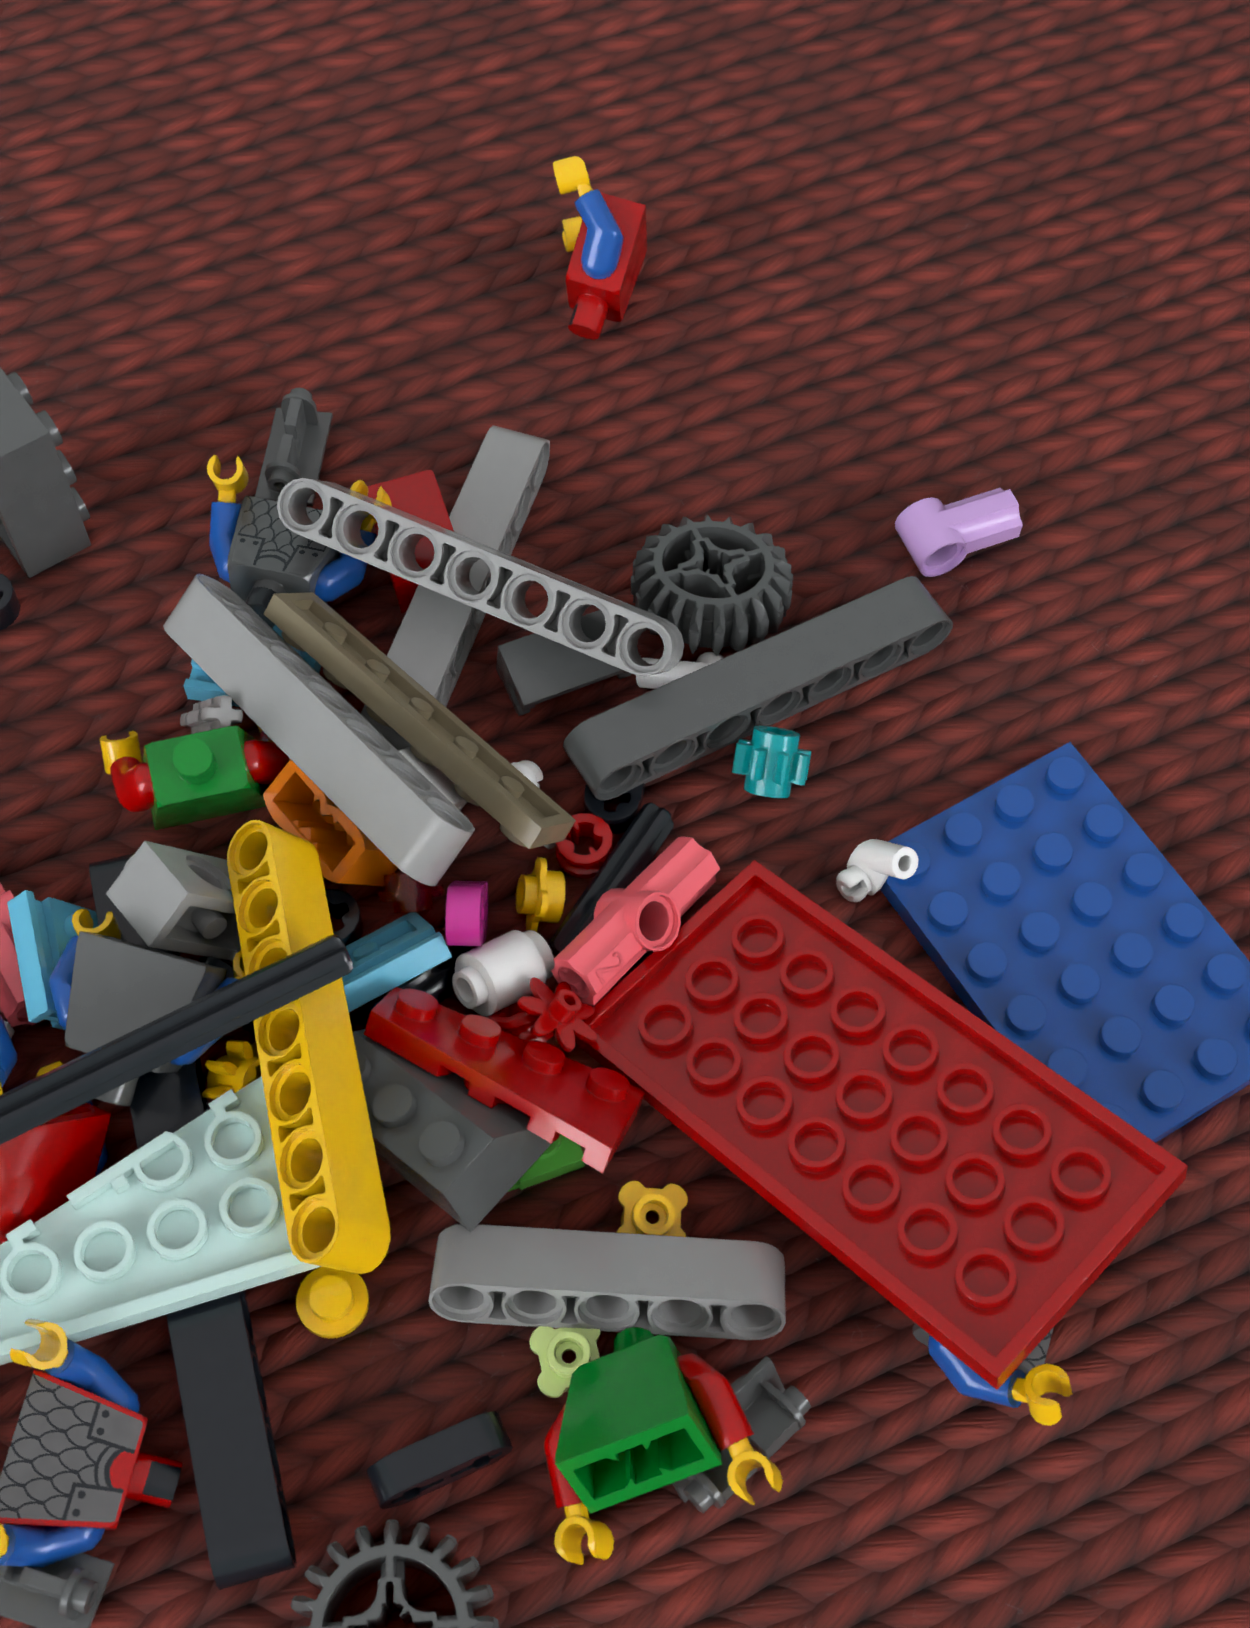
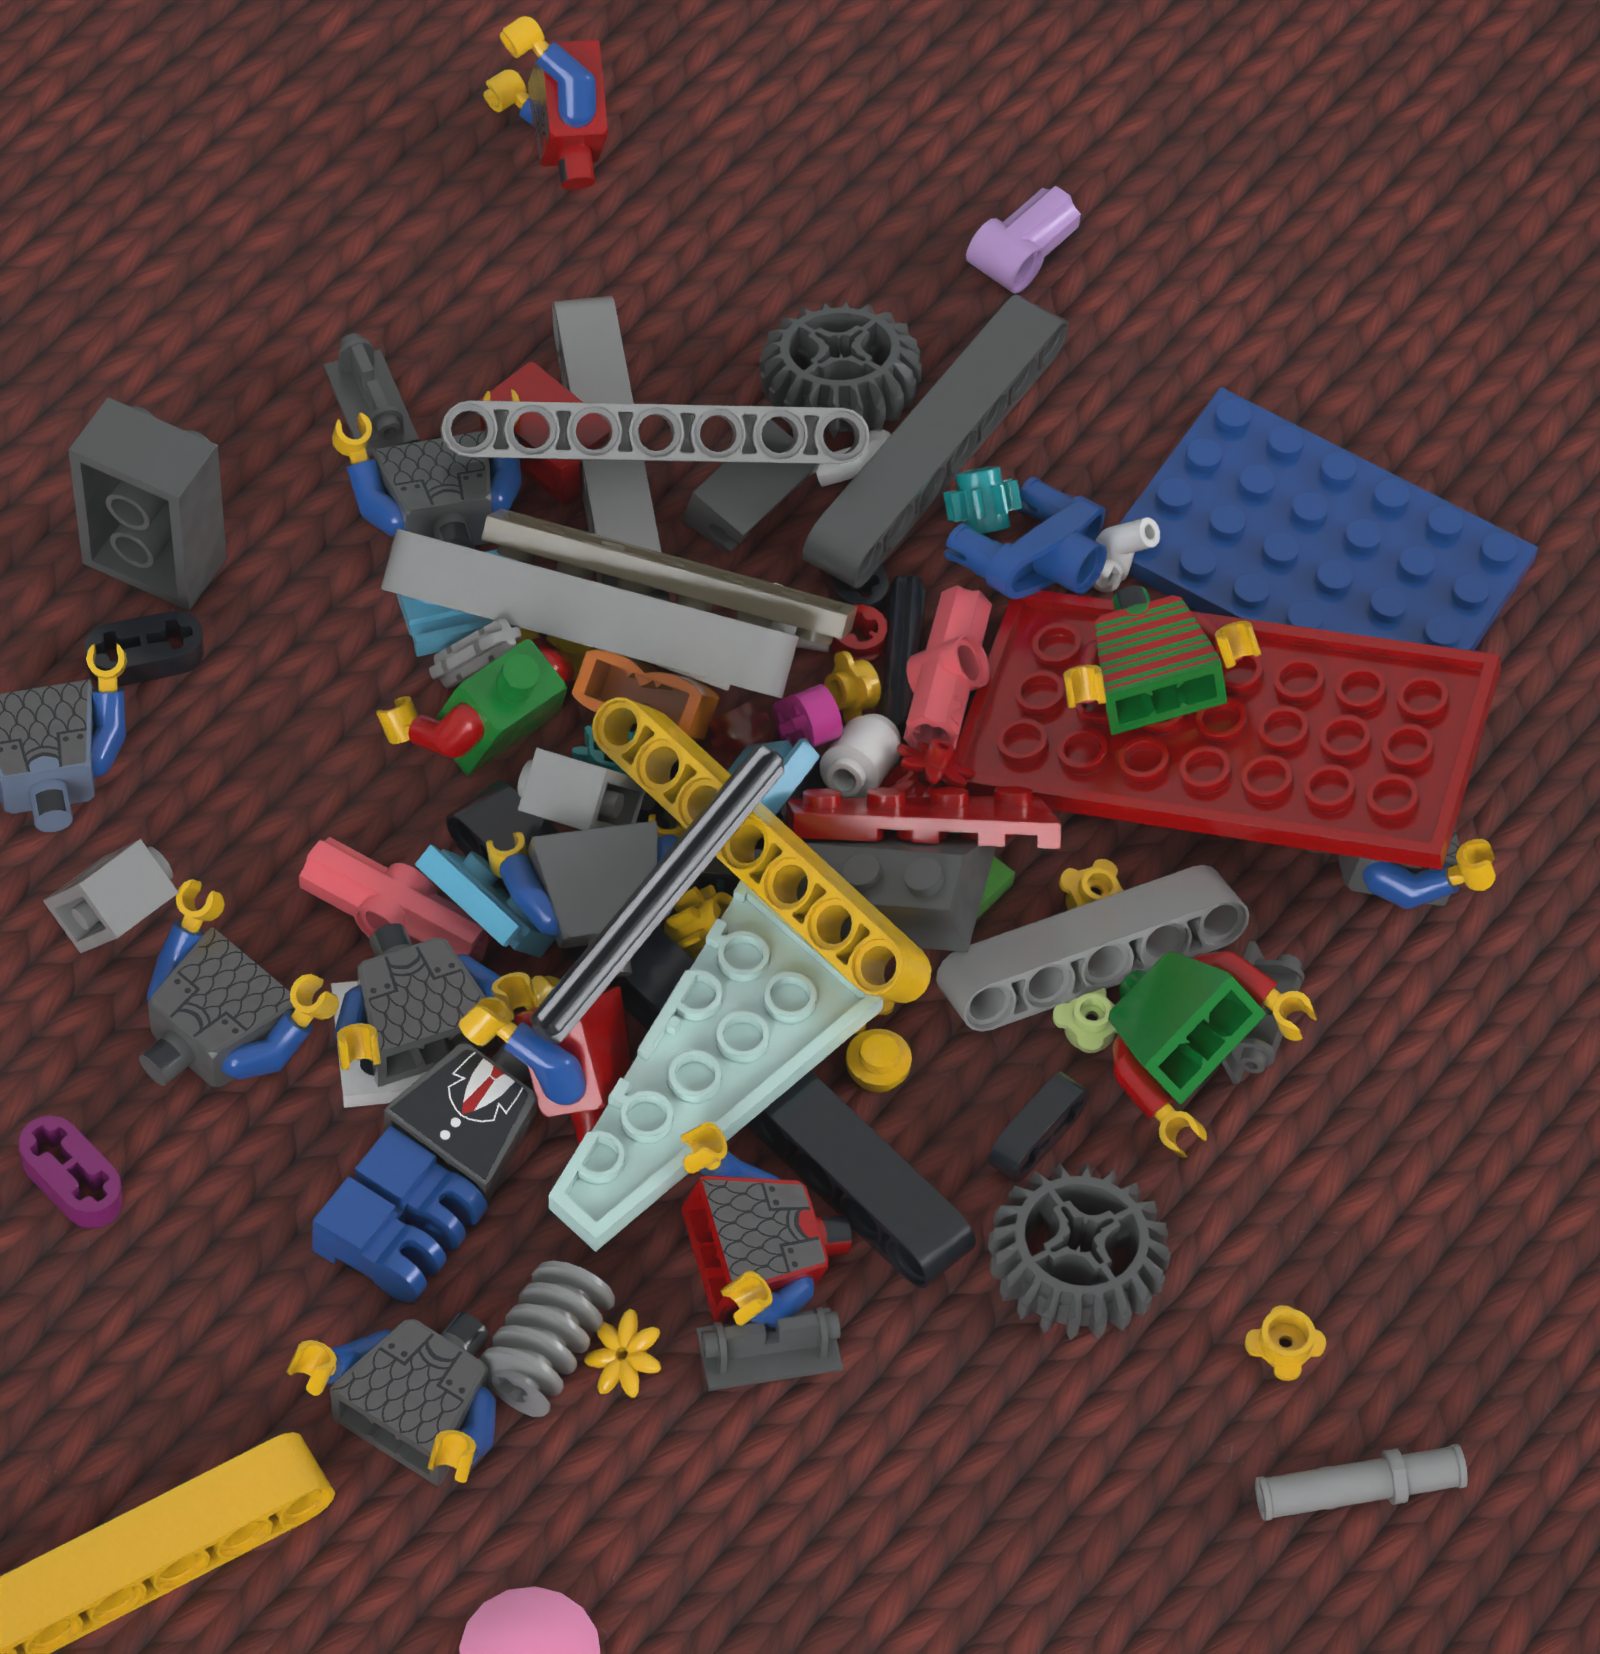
camera: 30 degrees left, 5 degrees down
(805, 842) = (1053, 552): none -> blue connector
(817, 1005) = (1156, 660): none -> torso

